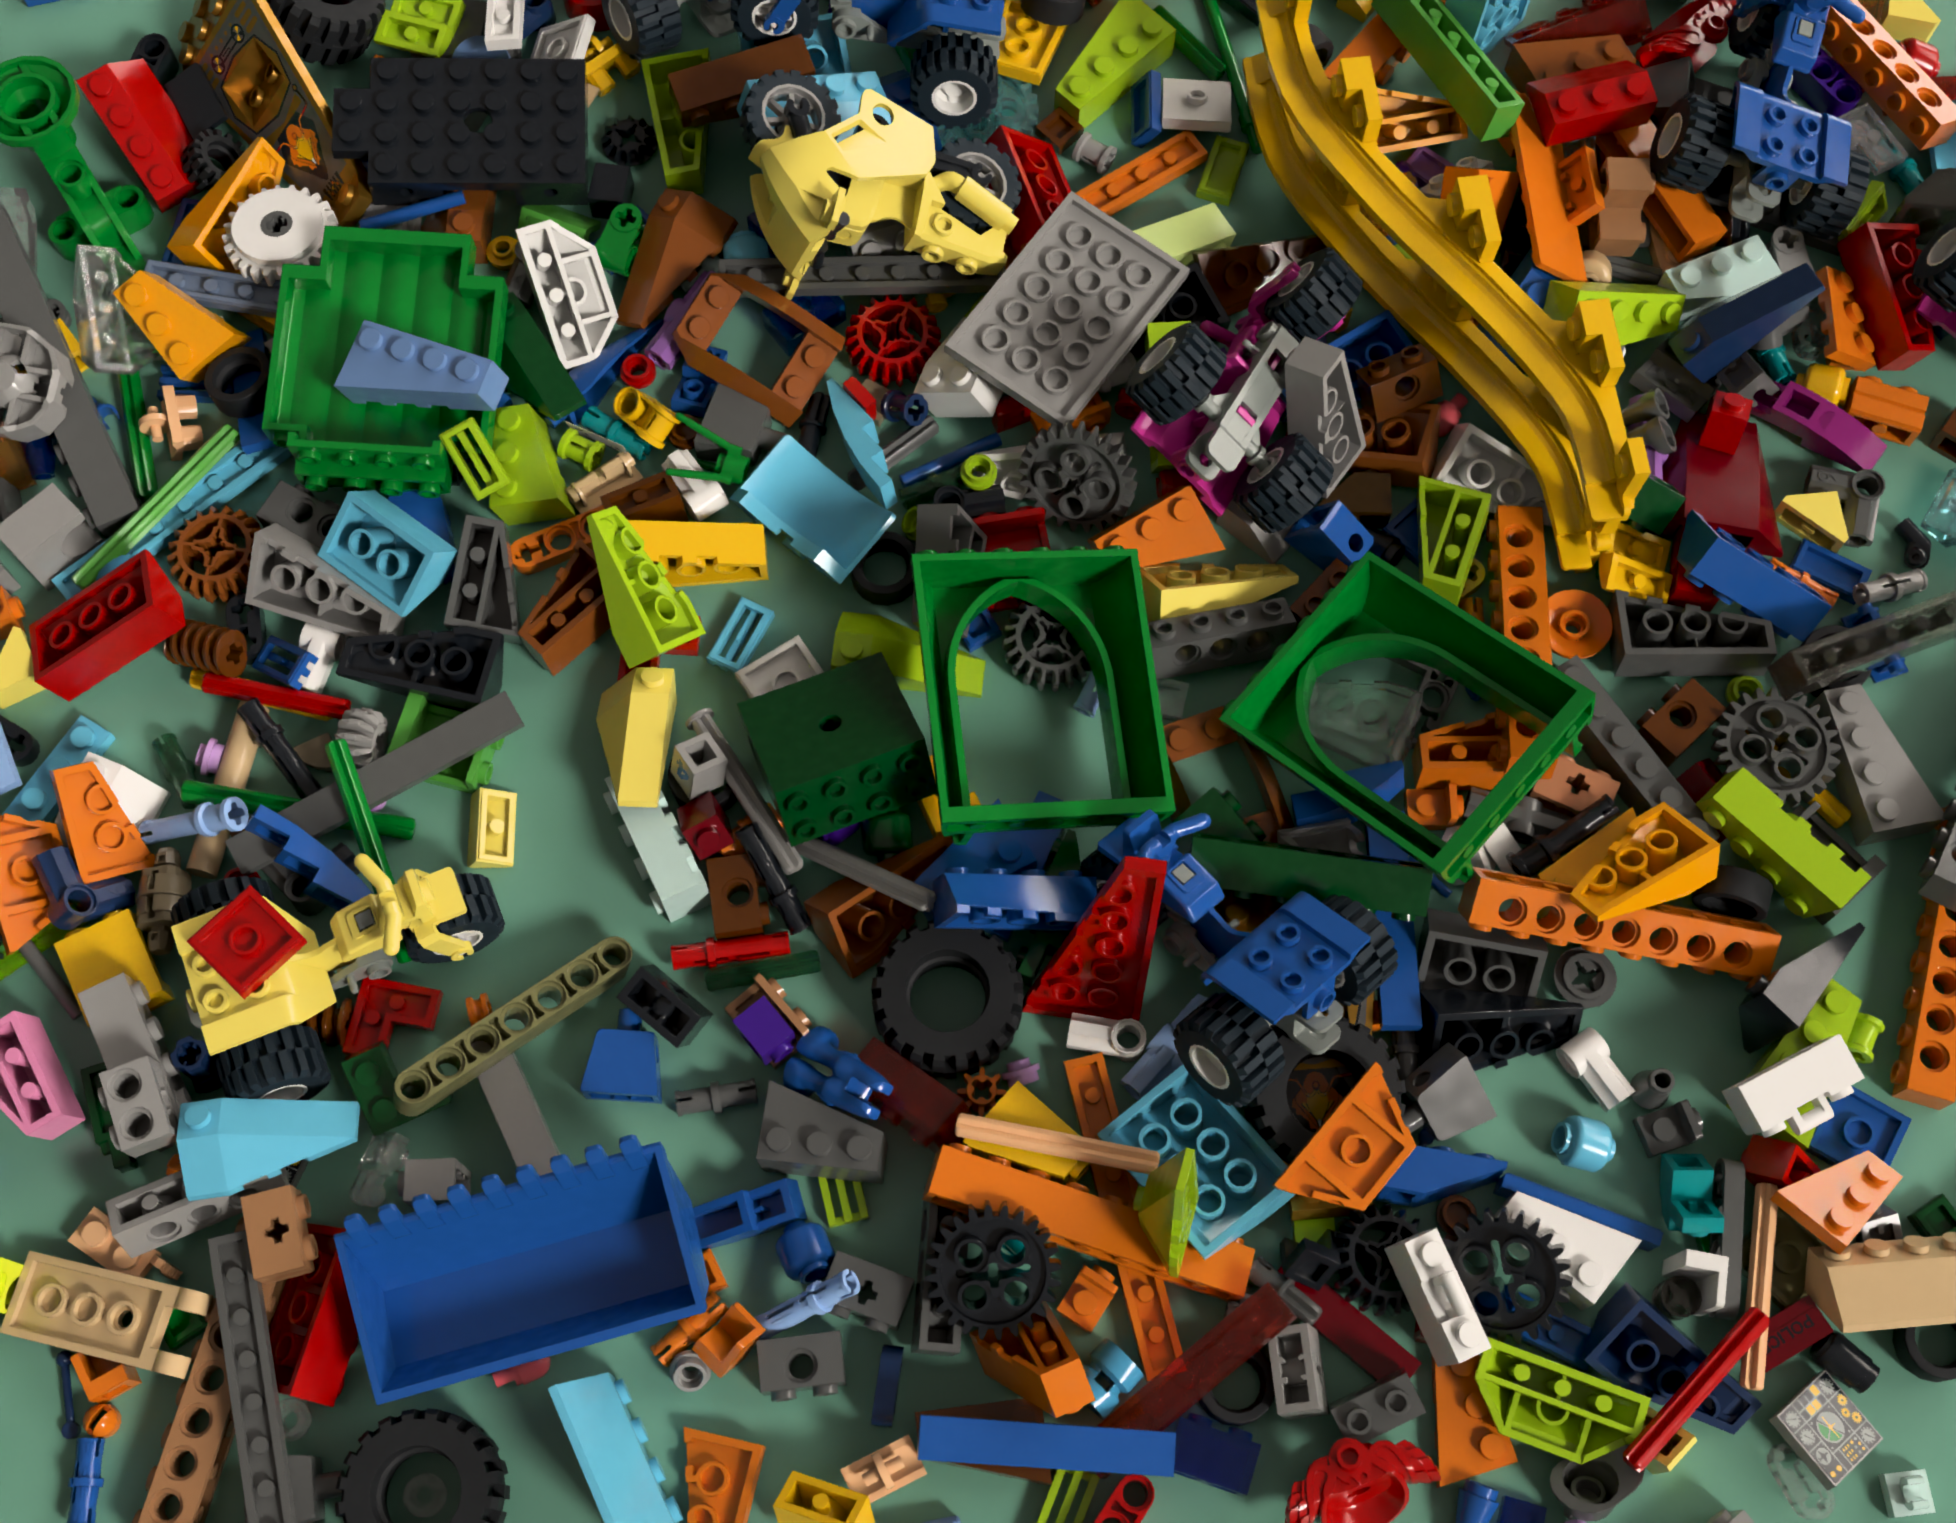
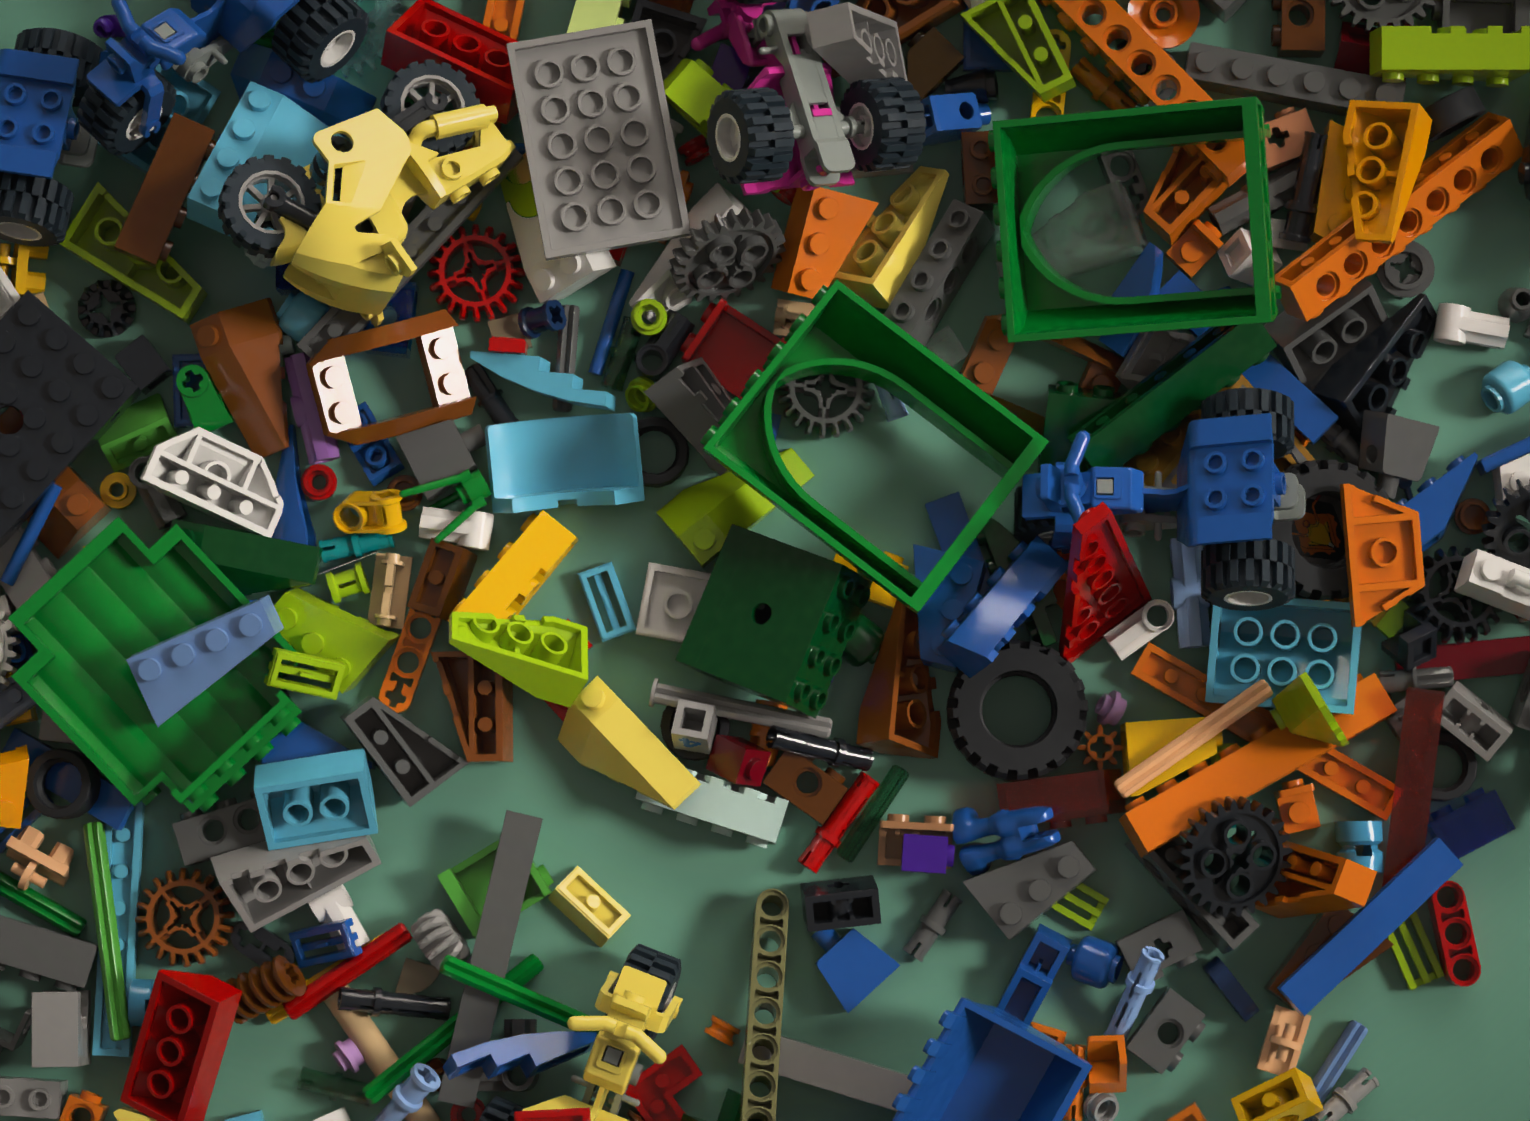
camera: 40 degrees left, 15 degrees up
(446, 667) = (436, 837): black wedge -> none
(868, 874) = (890, 683): light grey axle -> none

